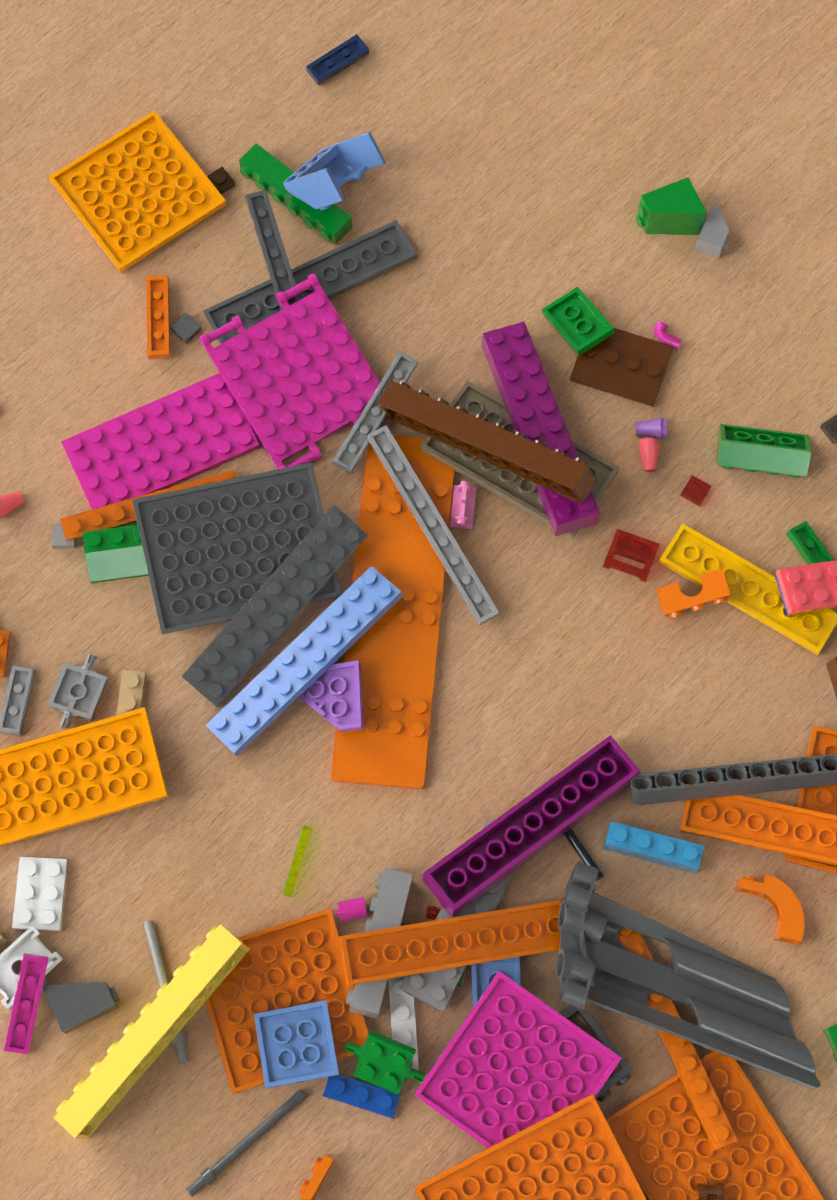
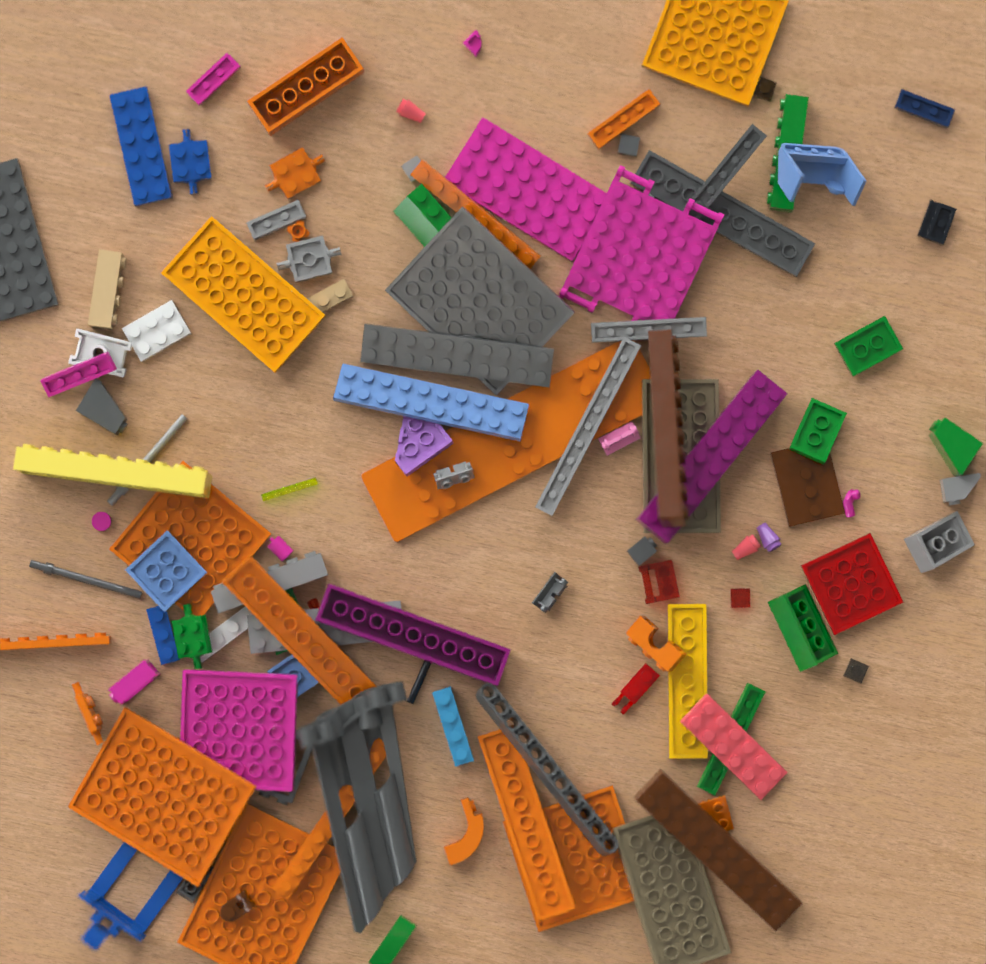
camera: 55 degrees right, 15 degrees up
(38, 680) = (293, 231): none -> orange plate
(197, 1083) = (101, 521): none -> dark pink tile
(393, 1159) = (133, 682): none -> dark pink window
(397, 673) = (462, 473): none -> light grey hinge
(449, 109) = (936, 222): none -> black plate
(526, 233) = (868, 346): none -> green plate
(579, 674) = (553, 587): none -> dark grey hinge
(589, 551) = (642, 550): none -> dark grey brick
(725, 642) = (636, 687): none -> red hinge
(747, 381) = (852, 584): none -> red plate
(756, 281) = (939, 542): none -> light grey slope

